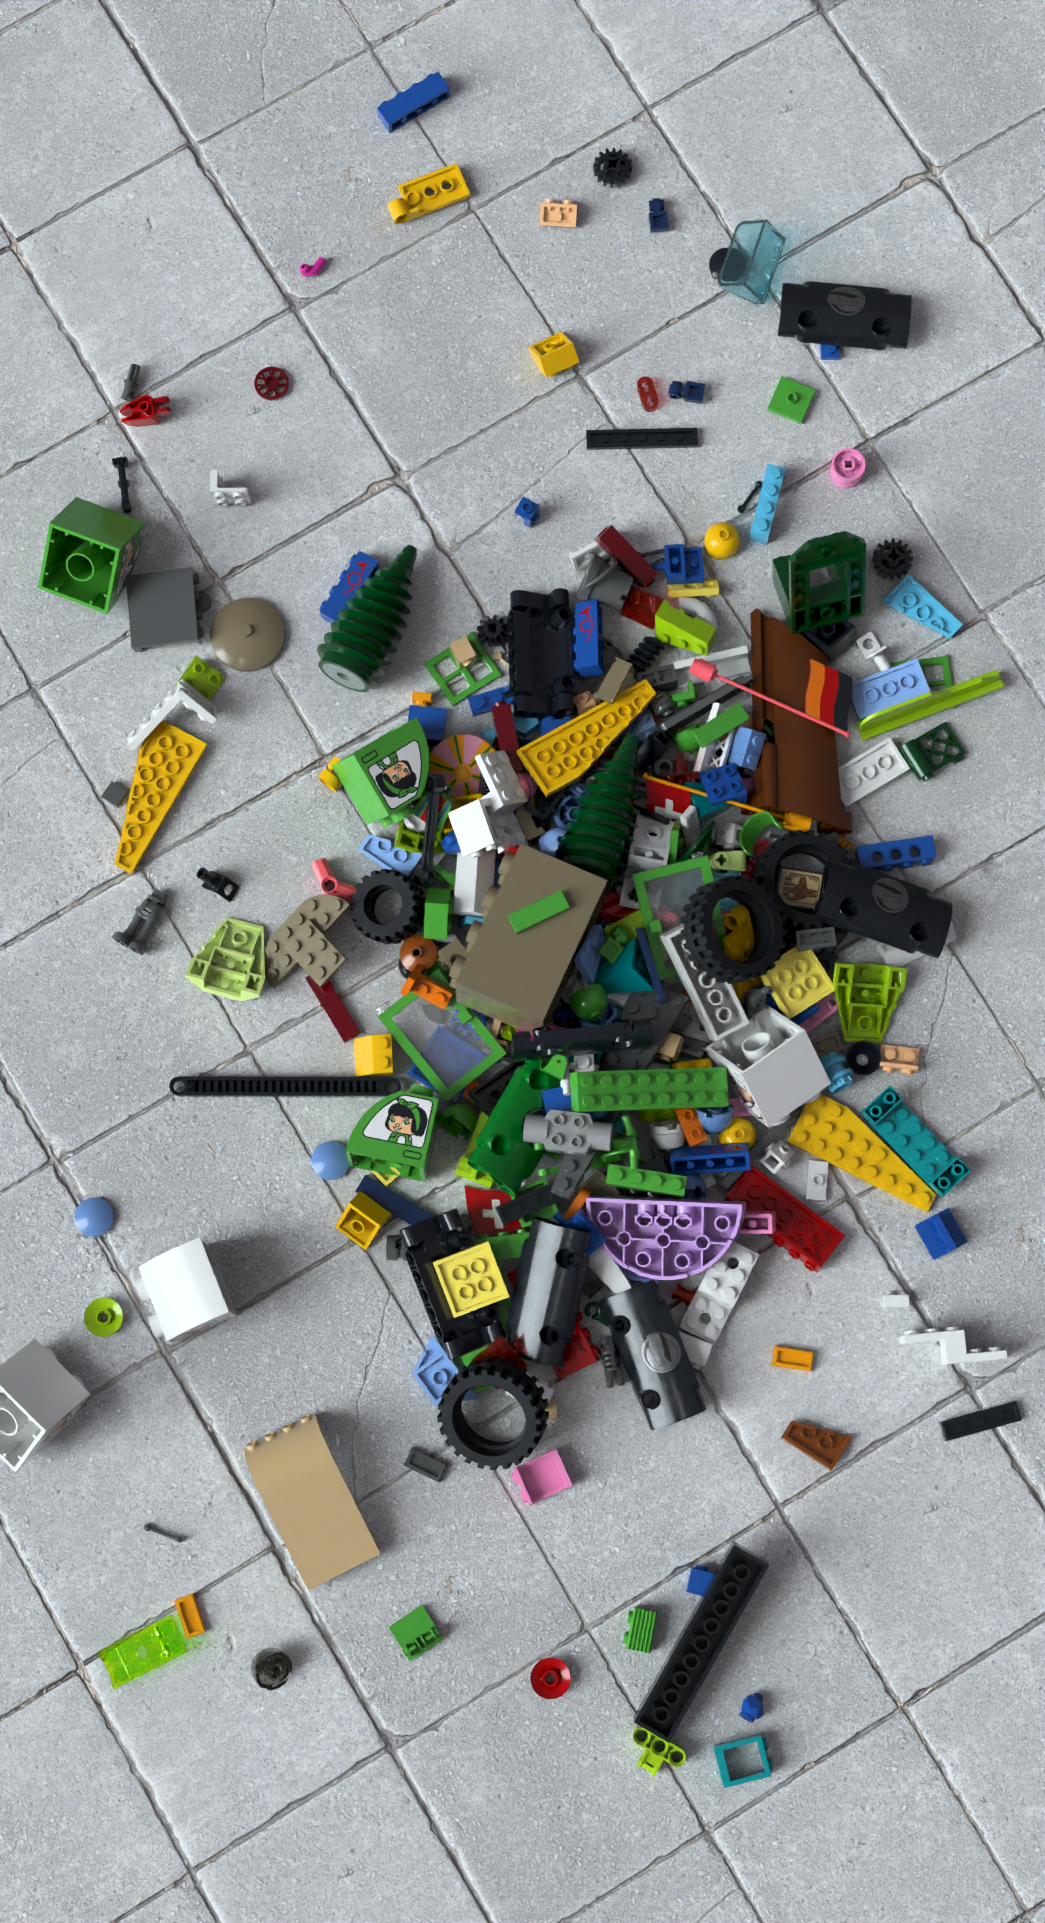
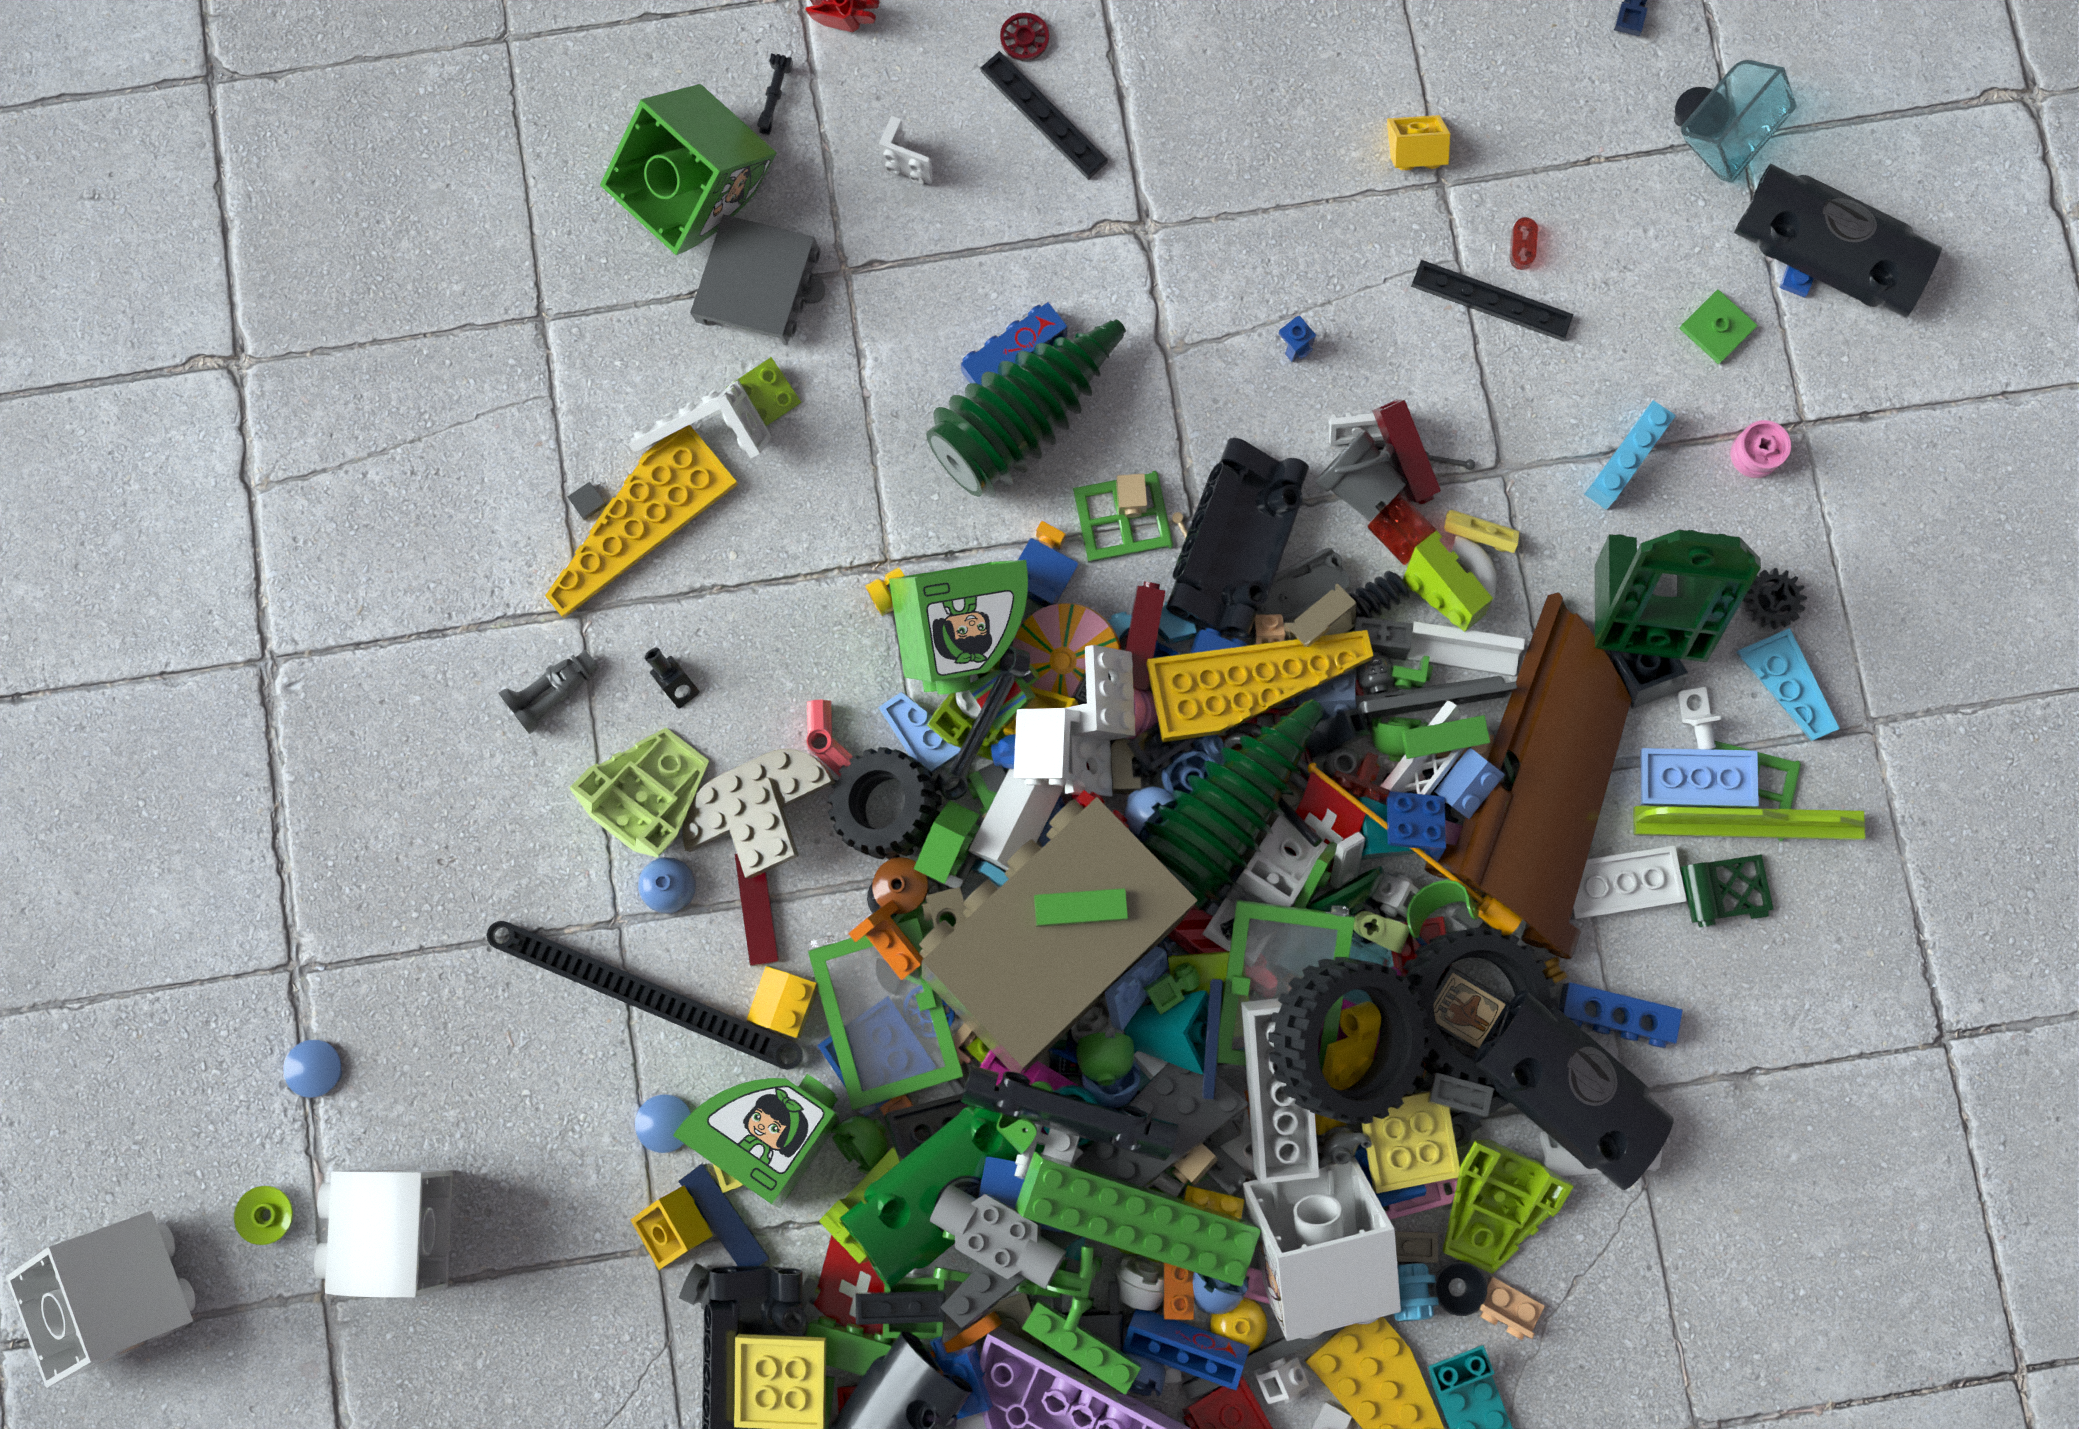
camera: 20 degrees right, 0 degrees up
(247, 634) = (853, 356): dark tan dish -> none
(270, 1014) = (666, 885): none -> medium blue cylinder
(305, 430) = (1043, 115): none -> black tile
(483, 702) = (1131, 573): blue hinge -> none
(492, 624) = (1184, 470): black gear -> none
(588, 638) = (1310, 543): blue brick -> none
(681, 564) = (1479, 492): blue plate -> none
(692, 392) = (1586, 264): dark blue plate -> none
(722, 540) = (1547, 481): yellow cylinder -> none
(741, 508) = (1591, 447): black hinge -> none
(826, 695) = (1608, 755): flag -> none

